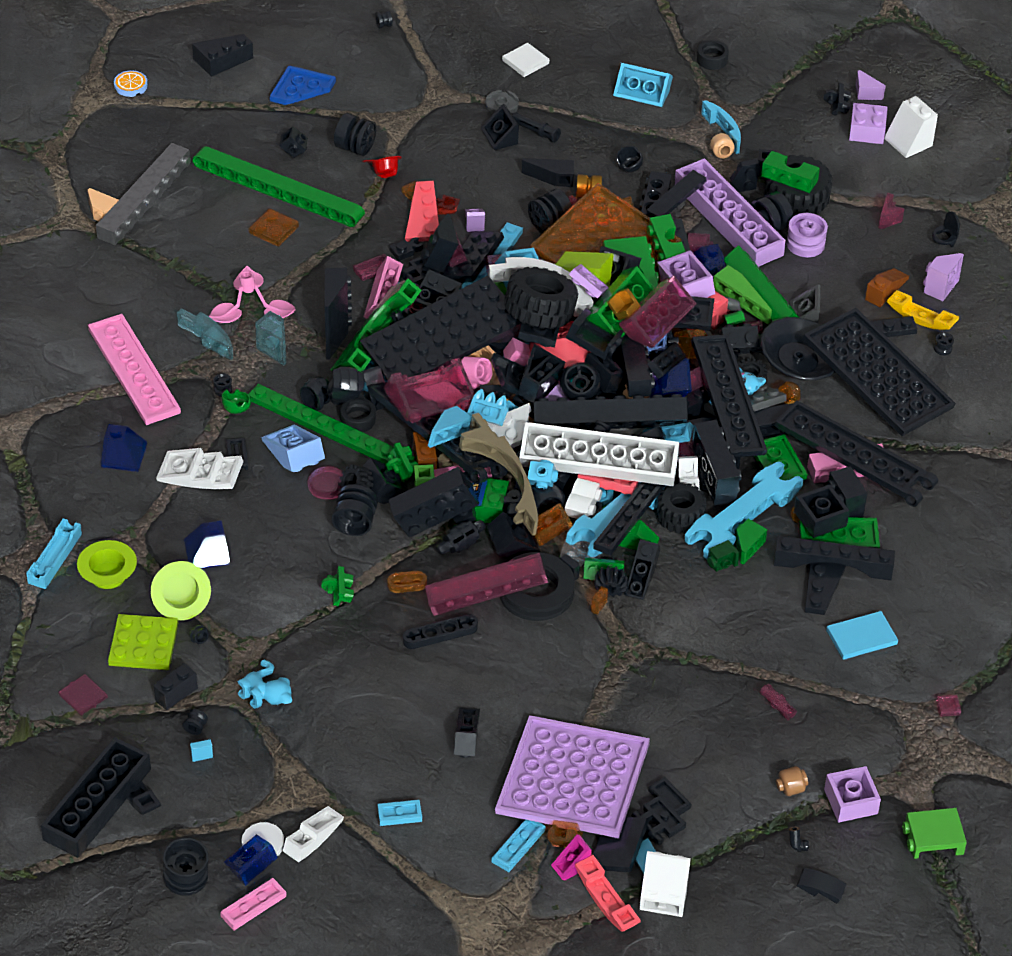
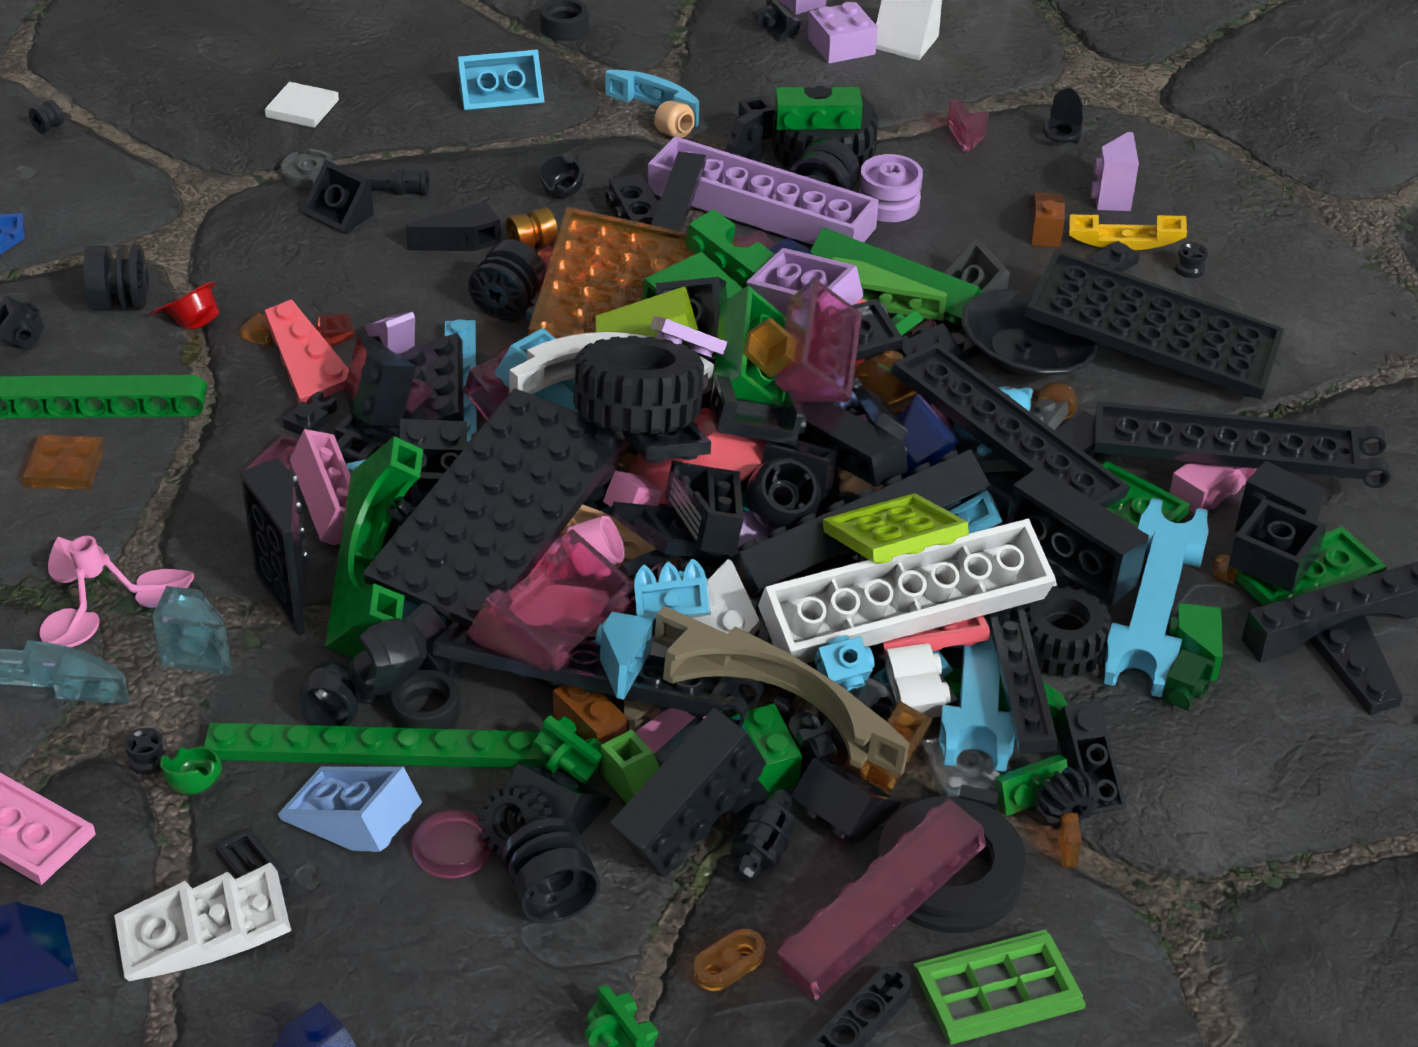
camera: 30 degrees left, 5 degrees down
(515, 645) = (998, 986): none -> bright green piece
(611, 420) = (895, 528): none -> lime plate

